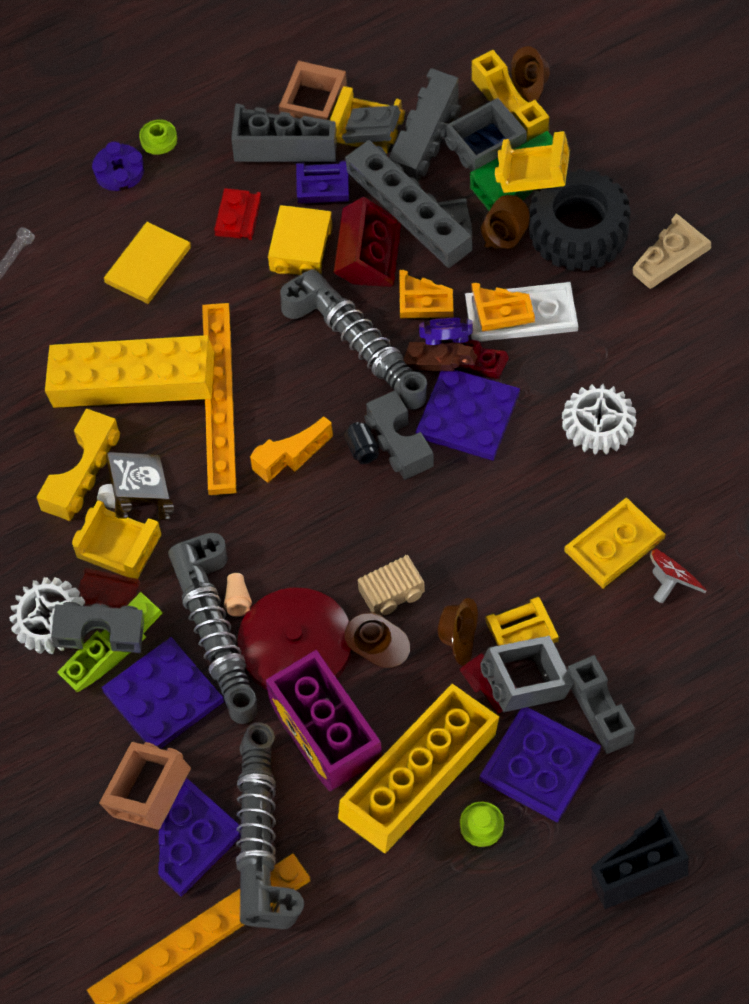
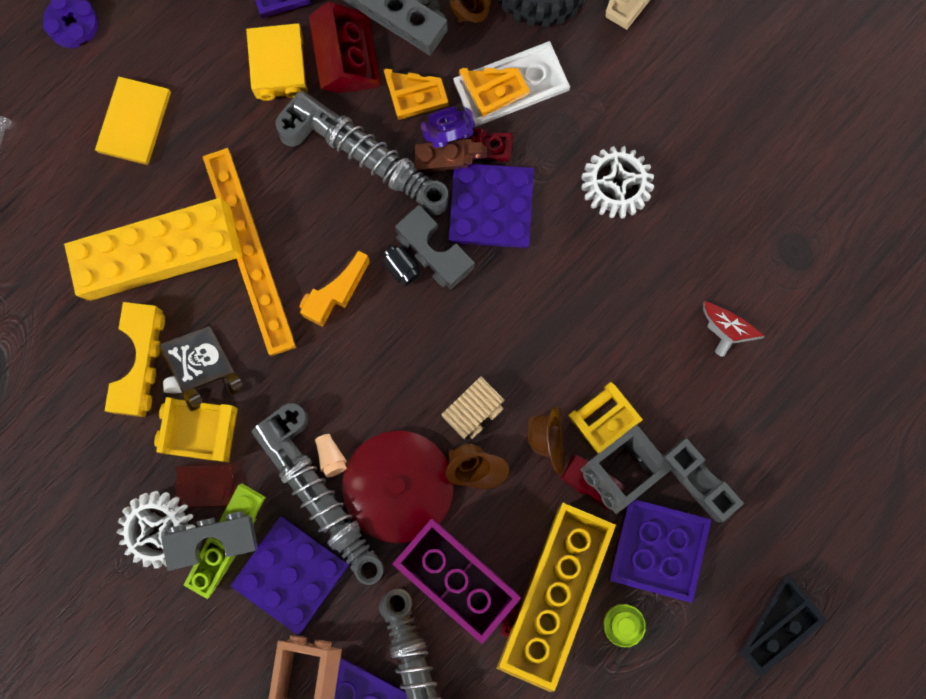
camera: 20 degrees left, 20 degrees up
(237, 214) = (206, 44): red plate -> none
(614, 542) = (665, 305): yellow tile -> none

